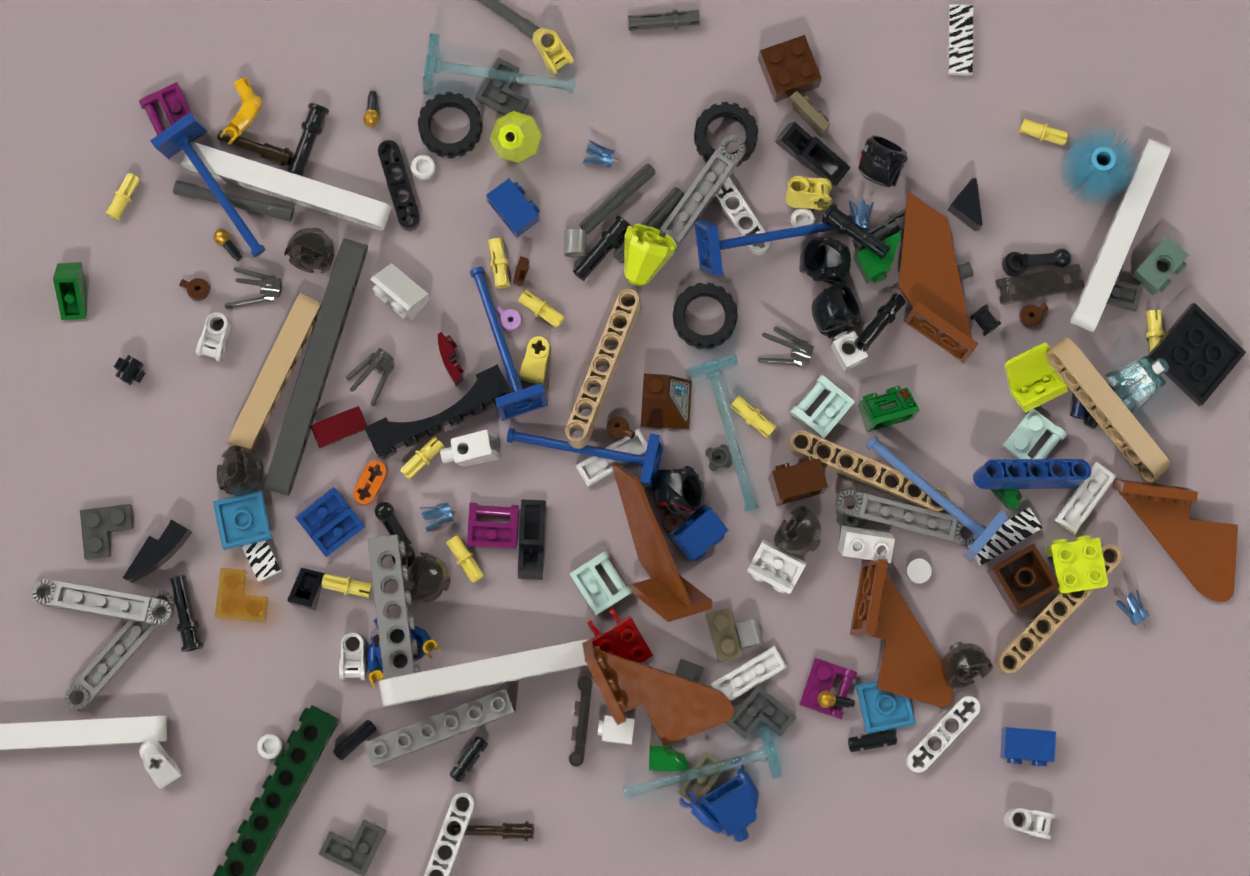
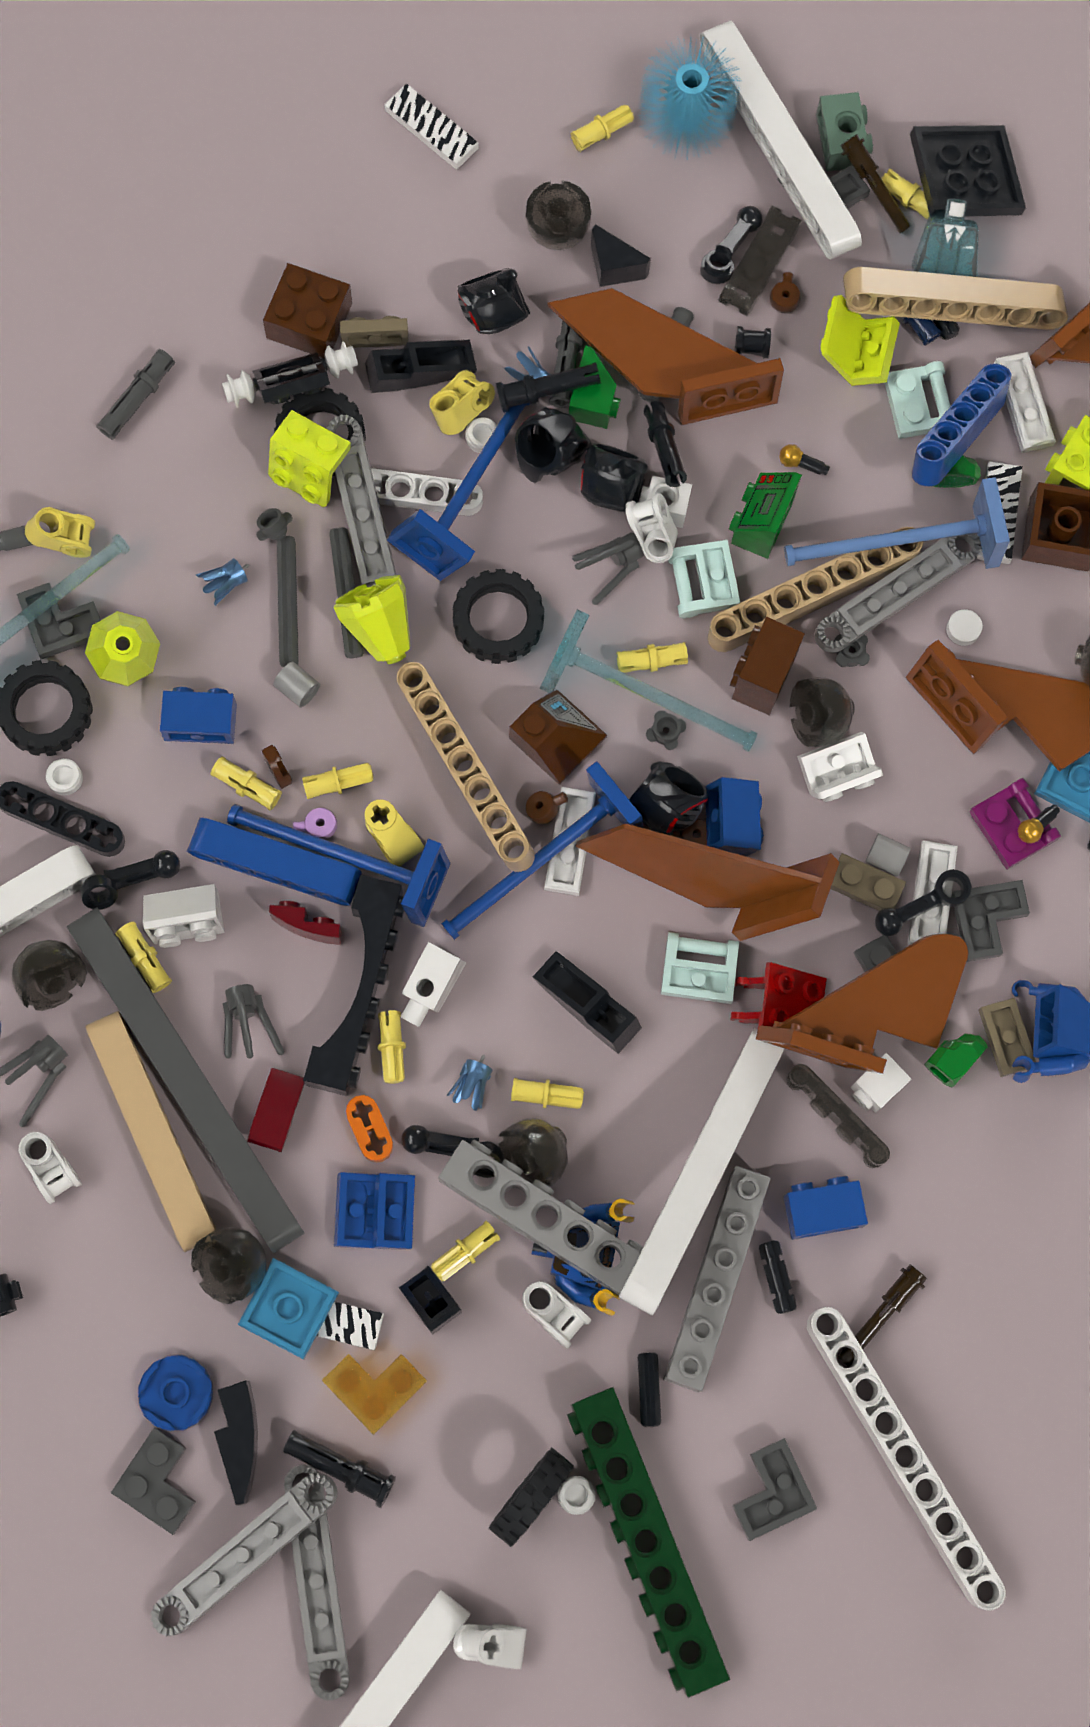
camera: 50 degrees left, 5 degrees down
(155, 500) = (175, 1393): none -> blue tile
(247, 722) = (531, 1497): none -> black tyre
(361, 291) = (143, 957): none -> light yellow pin
(418, 258) = (163, 865): none -> black piece
(468, 313) = (274, 861): none -> blue beam
(492, 533) = (544, 1040): magenta plate -> none
(524, 754) = (825, 1208): none -> blue brick
(609, 240) = (326, 645): black pin -> none
(652, 154) = (273, 524): none -> dark grey plate
(702, 139) = (305, 457): none -> neon yellow bracket
(711, 663) = (890, 920): none -> black piece
(742, 92) = (291, 377): none -> plate
(765, 753) = (1039, 940): clear light blue tile -> none
(824, 357) = (651, 522): none -> white piece
(866, 544) = (893, 653): white brick -> none
(937, 397) = (793, 457): none -> piece
(963, 153) = (558, 215): none -> clear smoke cylinder
(1144, 297) = (866, 168): none -> dark brown pin

